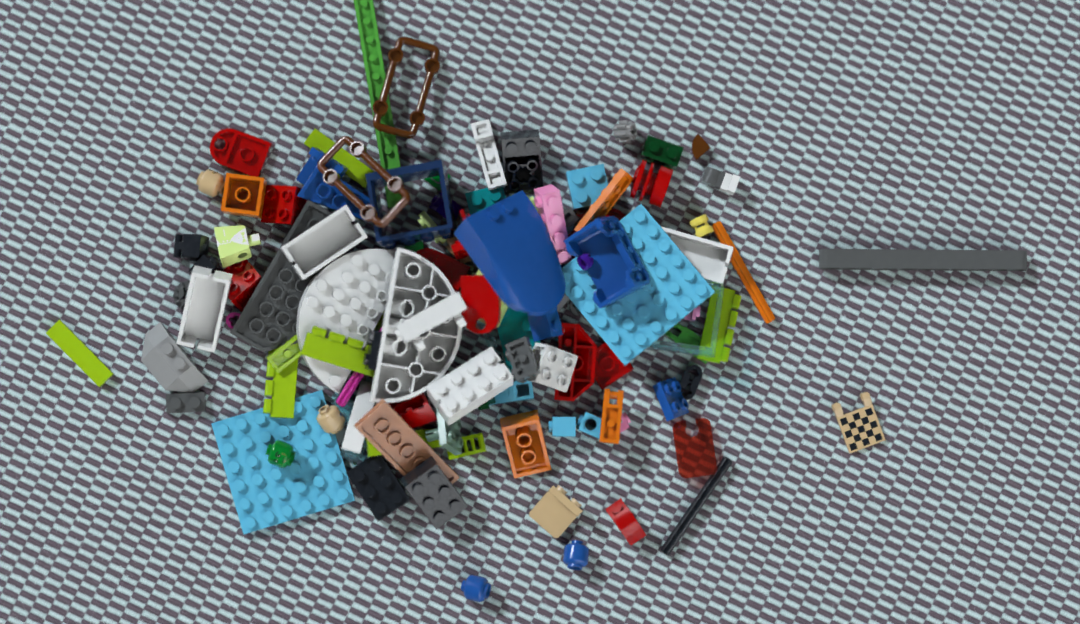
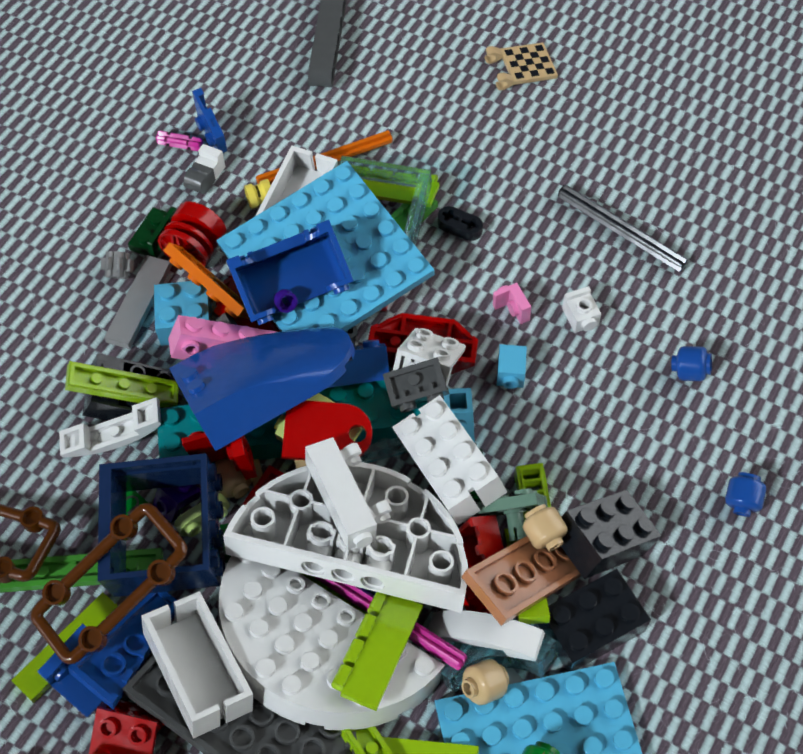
camera: 80 degrees left, 25 degrees down
(370, 358) = (381, 594): black piece -> none
(426, 451) = (545, 527): none -> tan head
(516, 157) = (120, 384): none -> lime tile
(525, 443) = (532, 414): orange slope -> none
(555, 511) = (628, 383): tan bracket -> none
(581, 423) = (512, 323): medium azure brick -> none
(599, 152) = (137, 302): none -> light grey tile
(608, 366) = (427, 302): red tile -> none
(611, 417) = (502, 297): orange plate -> none
(622, 473) = (581, 310): none -> white brick
(625, 522) = (644, 296): red brick -> none
(671, 398) = (481, 239): blue bracket -> none
(696, 453) = (551, 222): clear red piece -> none
(699, 147) = (156, 192): reddish brown tile -> none
(752, 153) = (179, 140): none -> dark pink axle
(768, 174) = (207, 121): none -> blue wing

